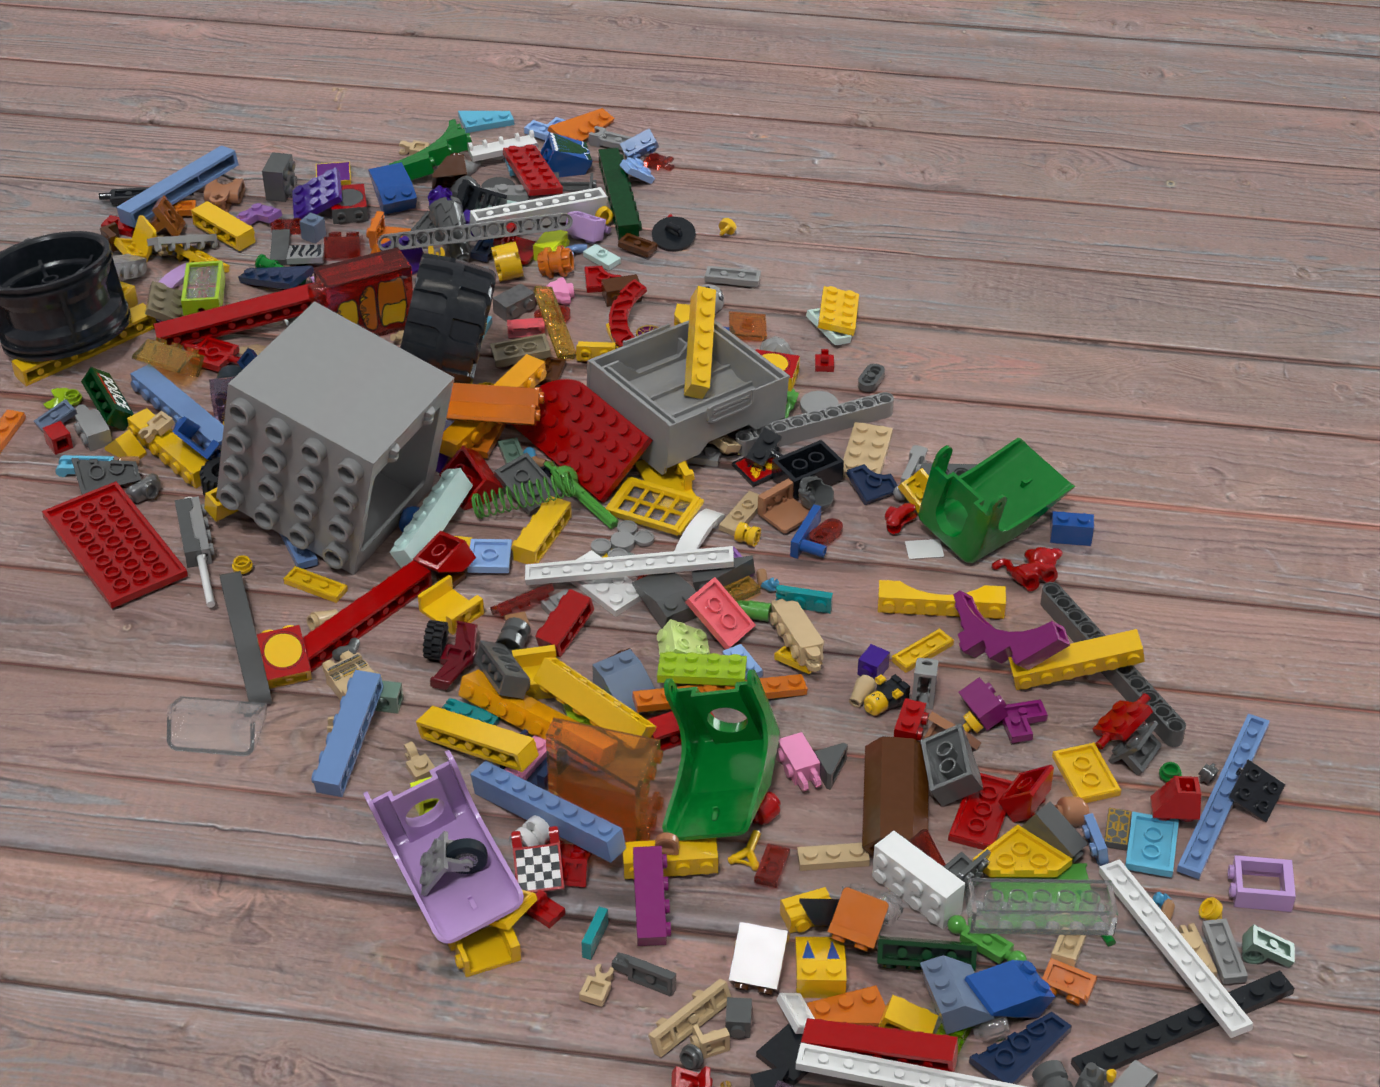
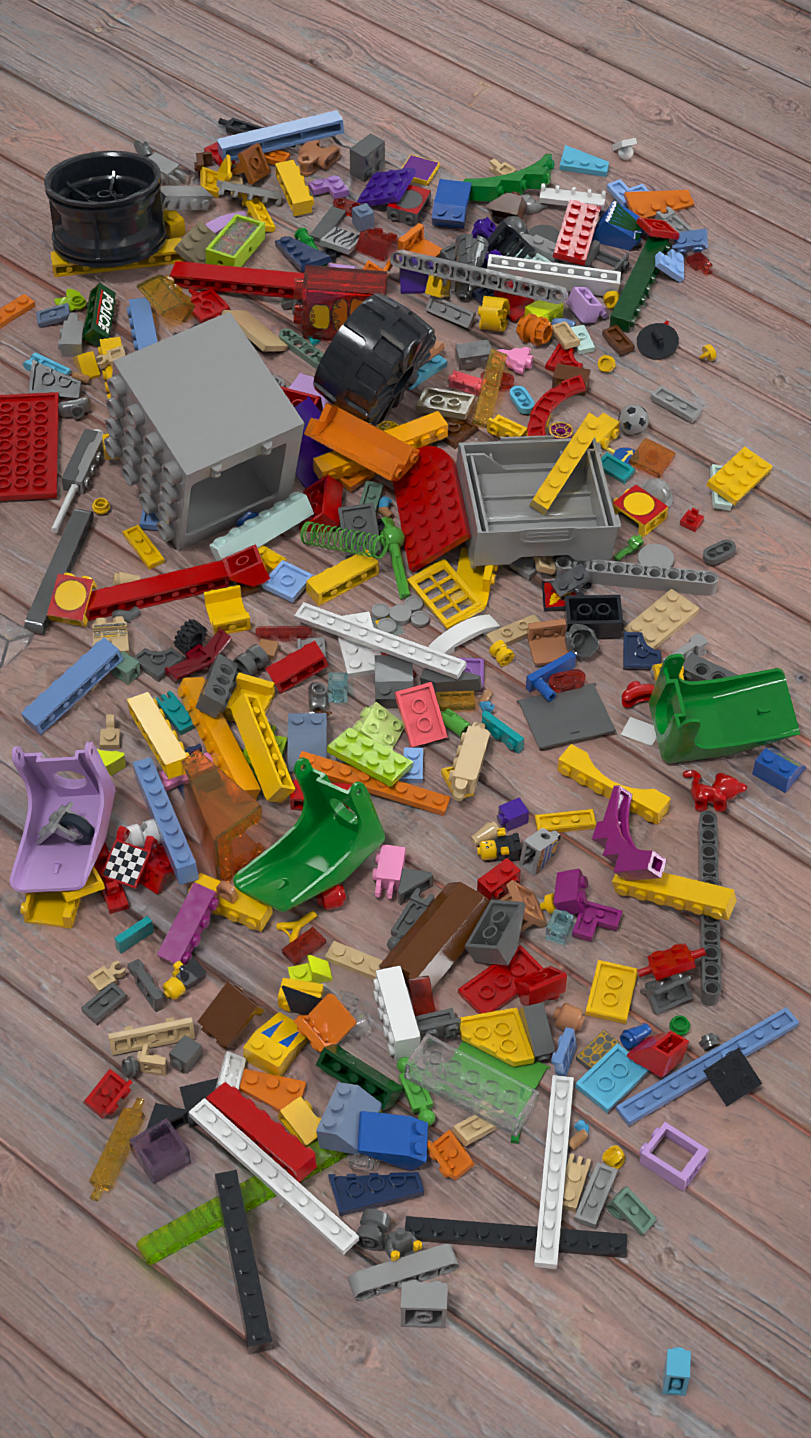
camera: 30 degrees right, 10 degrees up
(57, 437) = (42, 334): red brick -> none
(417, 678) = (154, 662): none -> dark grey tile
(517, 94) = (624, 148): none -> white tile
(588, 257) = (565, 335): none -> tan plate
(589, 323) = (521, 399): none -> medium azure plate
(602, 640) = (317, 696): none -> flat silver piece
(603, 143) = (657, 228): none -> red tile
(614, 1011) = (104, 1003): none -> dark grey plate
(616, 625) = (338, 687): none -> clear light blue brick
(643, 266) = (606, 363): none -> yellow tile
(684, 941) = (183, 978): none -> piece
(799, 882) = (314, 971): none -> neon yellow slope
(849, 563) = (568, 717): none -> dark grey piece
(852, 794) = (408, 917): none -> dark grey plate
(996, 738) = (559, 926): none -> clear light blue brick
(1140, 799) = (634, 1036): none -> blue cone

